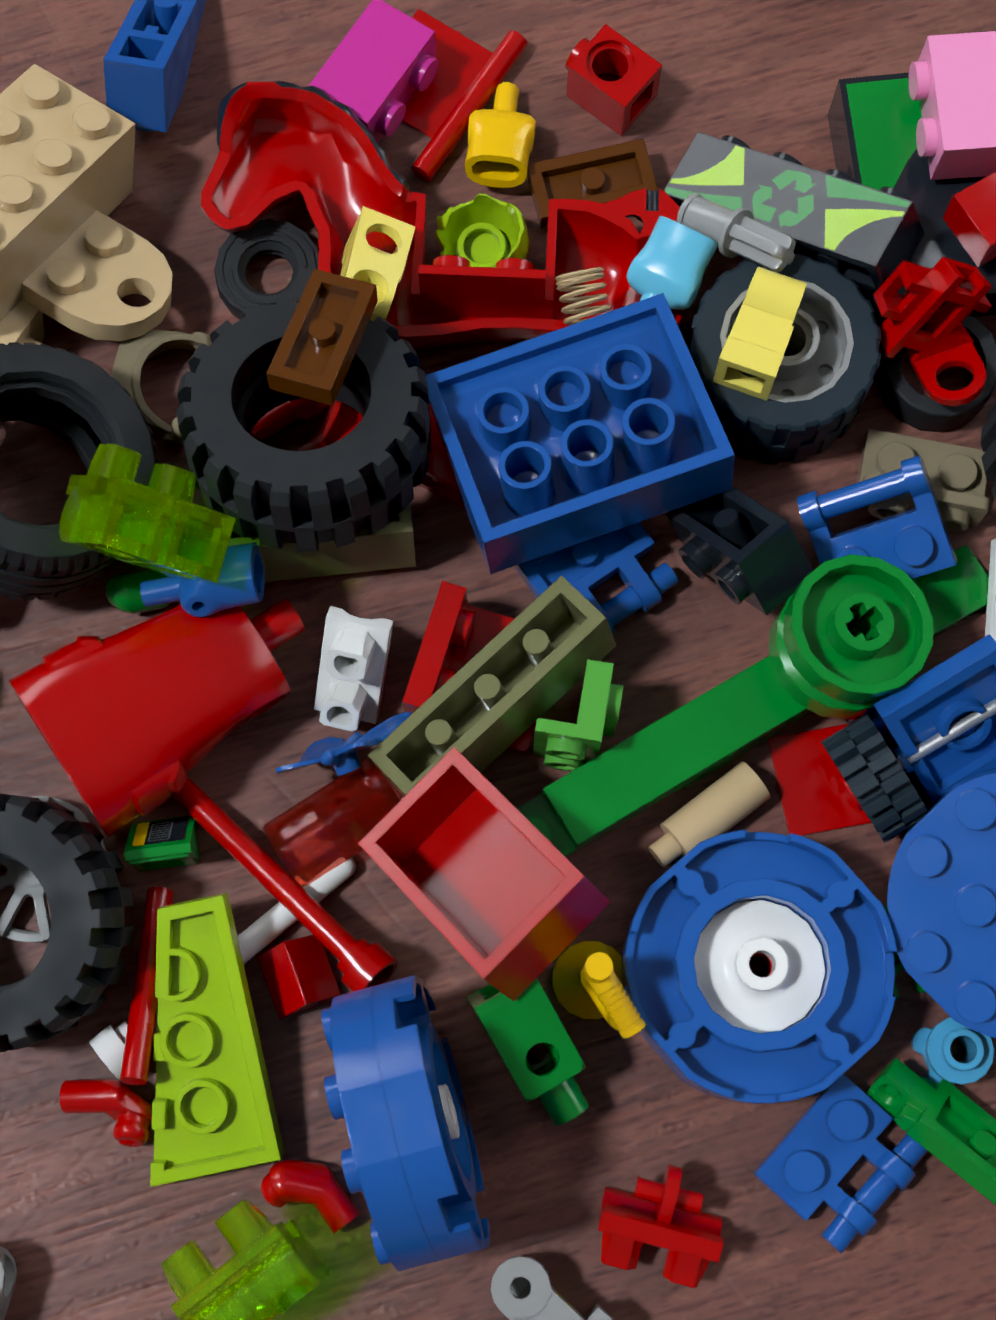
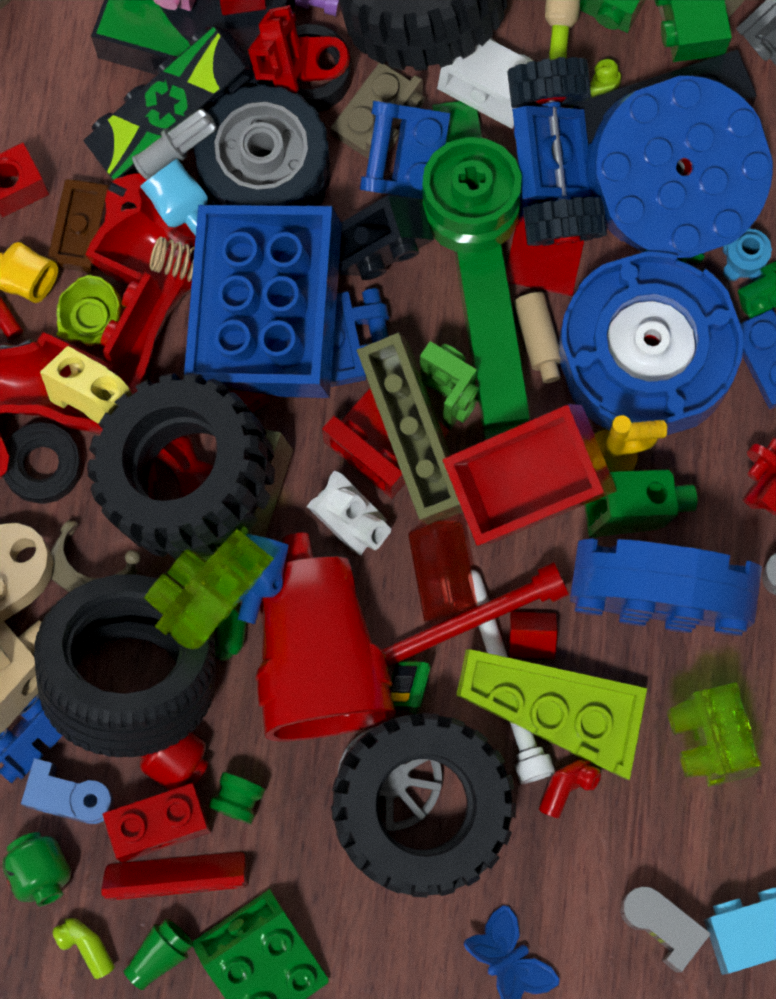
camera: 65 degrees left, 0 degrees up
(143, 1002) = (501, 730): red bar -> none
(309, 1184) = (668, 680): red arm -> none
(322, 337) = (141, 422): reddish brown plate -> none
(342, 753) = (396, 554): blue piece -> none
(760, 334) = (254, 157): light yellow leg -> none

